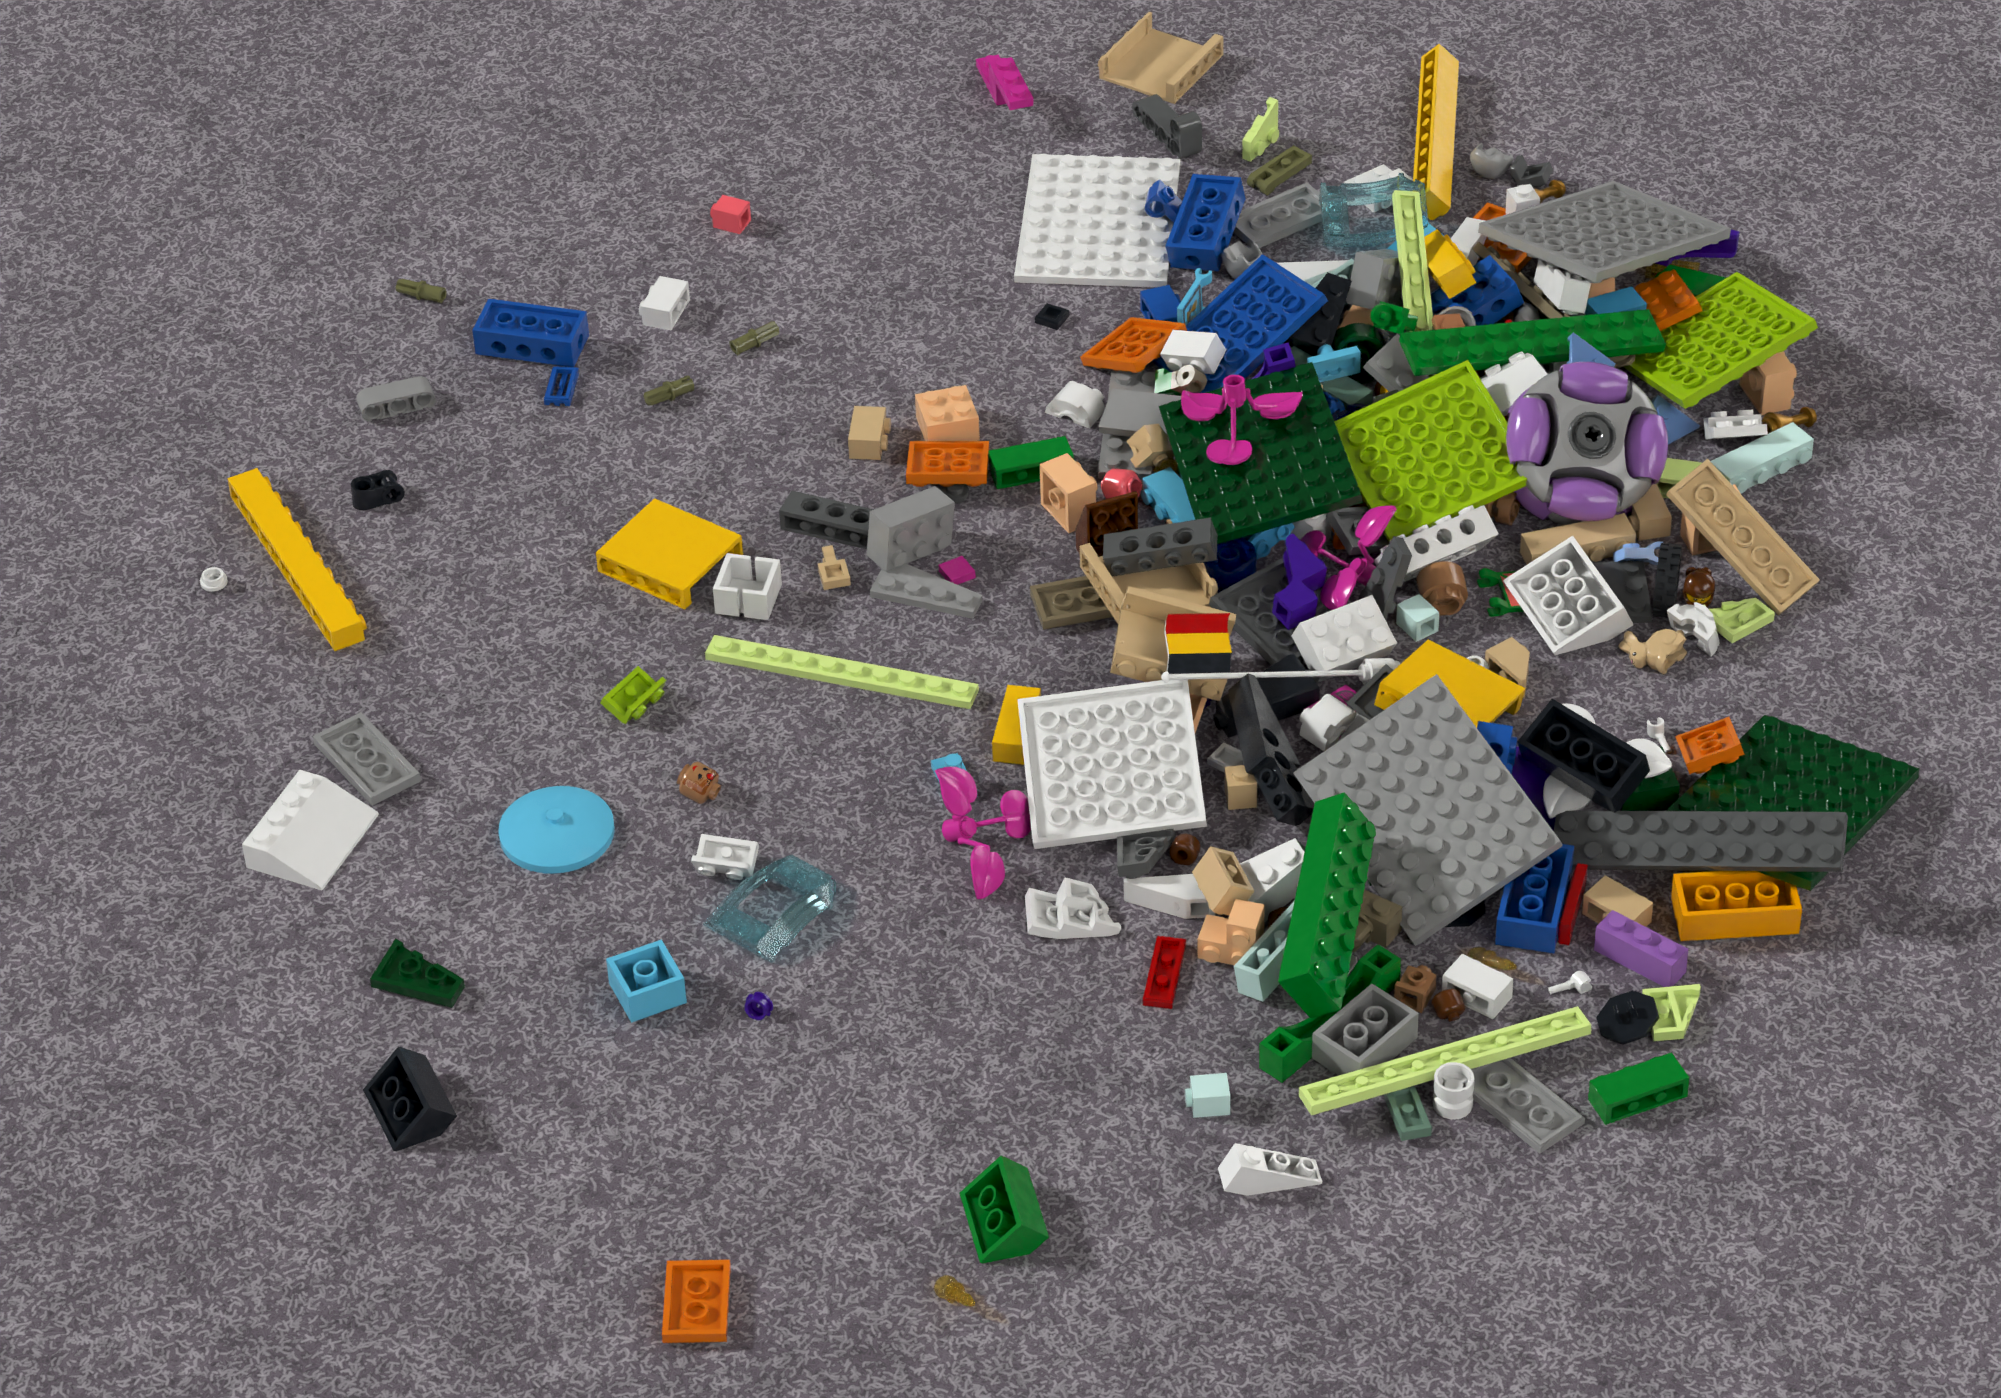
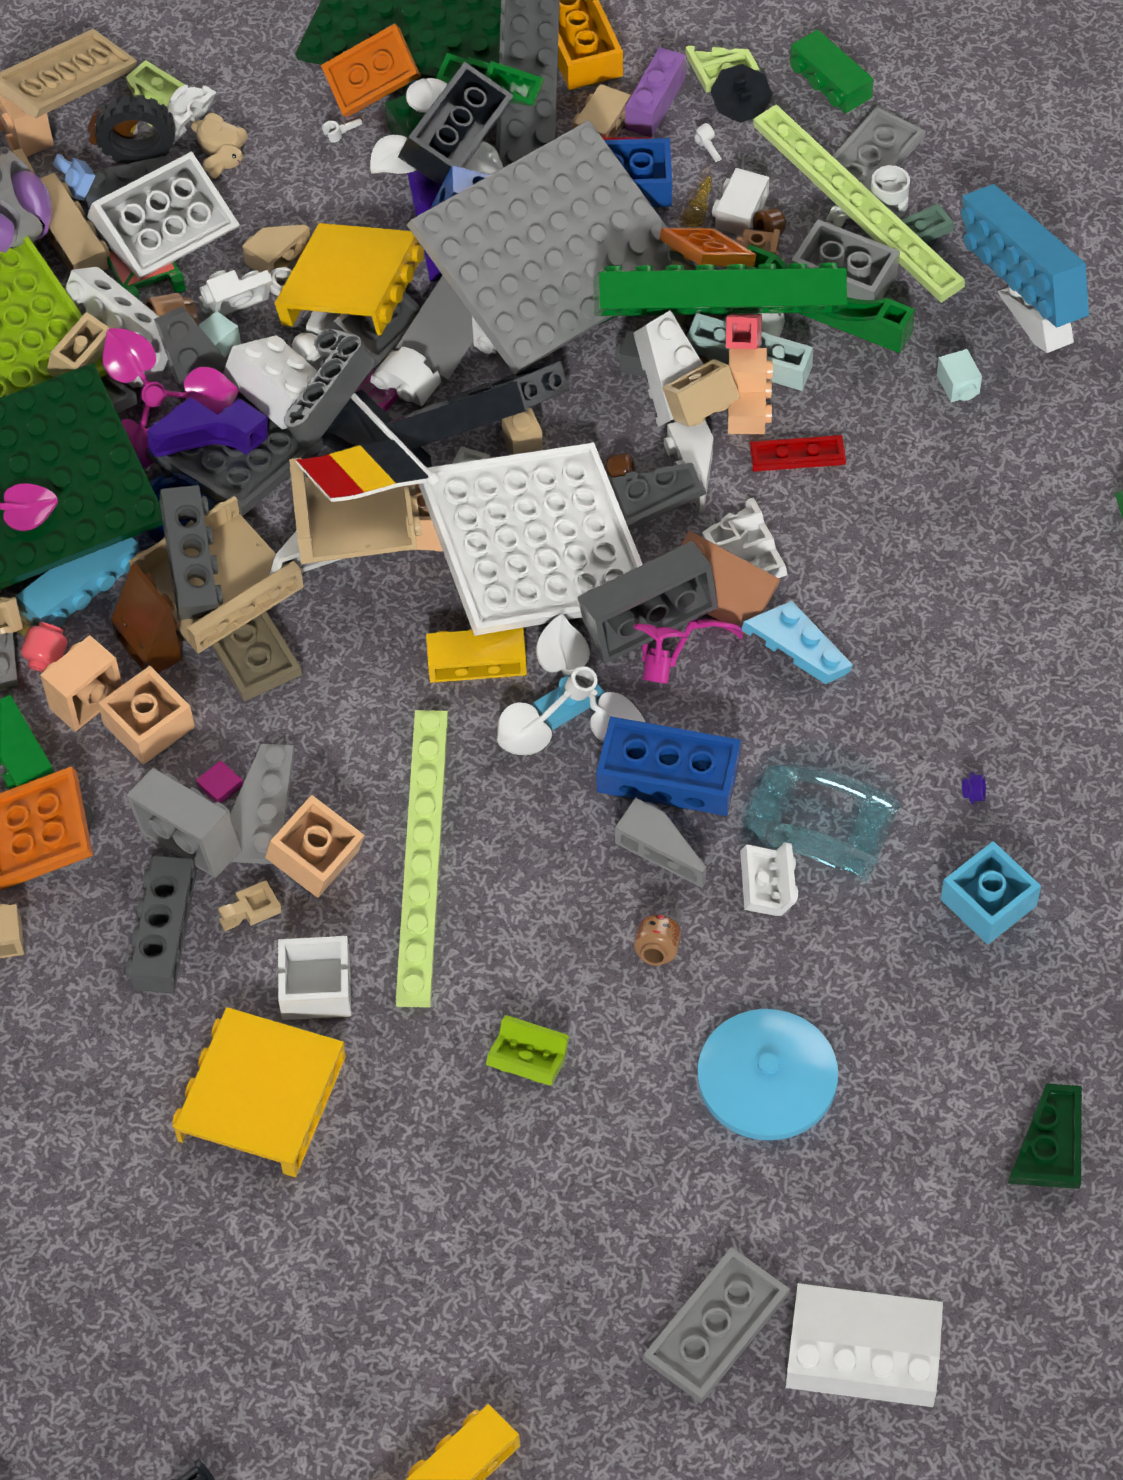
camera: 105 degrees left, 15 degrees up
(789, 800) = (654, 837): none -> light grey slope
(852, 811) = (668, 766): none -> blue brick
(862, 599) = (314, 846): none -> light nougat brick
(932, 744) = (562, 649): none -> white plant
(953, 925) = (800, 638): none -> medium azure wing
(1004, 802) = (658, 593): none -> dark grey slope
(1027, 528) = (146, 715): none -> light nougat brick
(1027, 871) = (739, 585): none -> nougat slope
(1273, 912) = (743, 331): none -> coral brick
(1311, 1138) = (1025, 255): none -> dark azure brick
(1317, 656) = (332, 386): none -> dark grey beam
(1382, 490) = (79, 347): none -> tan brick
(1399, 920) = (707, 246): none -> orange plate
(1455, 621) = (228, 294): none -> white plate
(1650, 799) = (519, 83): none -> green slope

